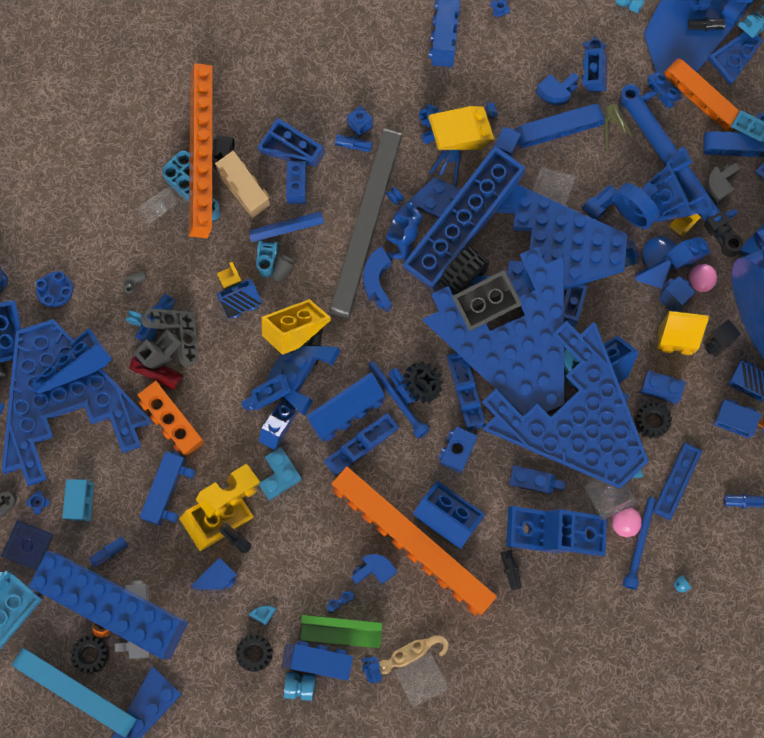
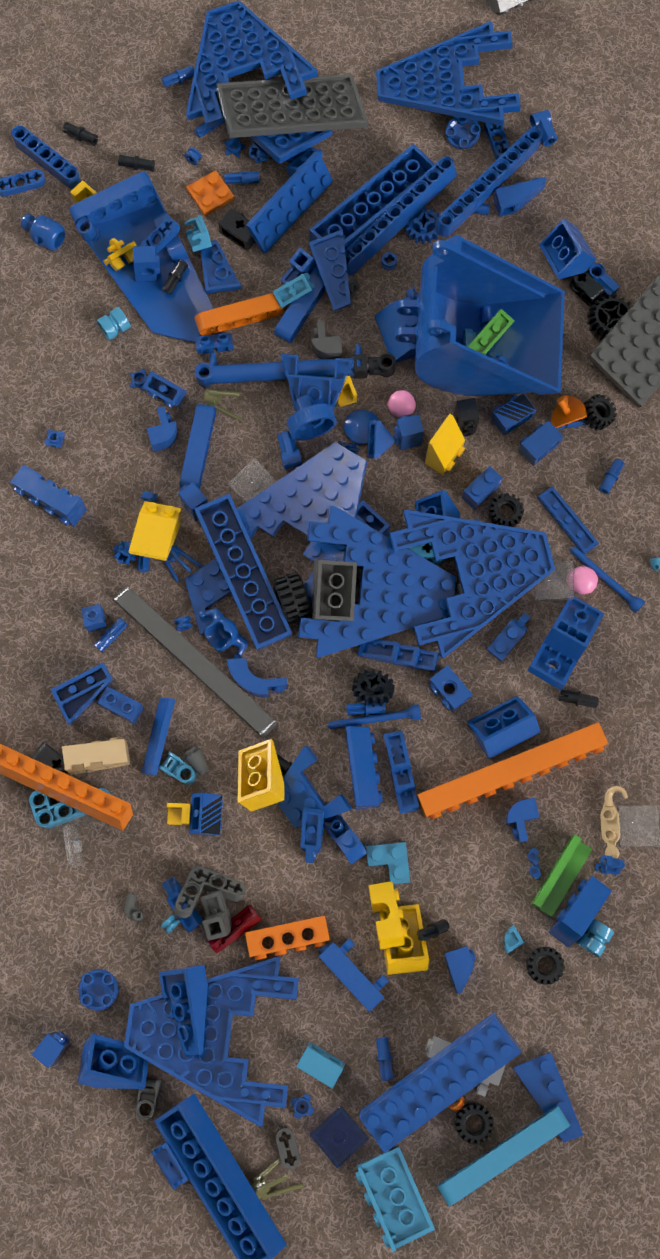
camera: 65 degrees left, 0 degrees up
(688, 252) = (376, 402): blue brick -> none

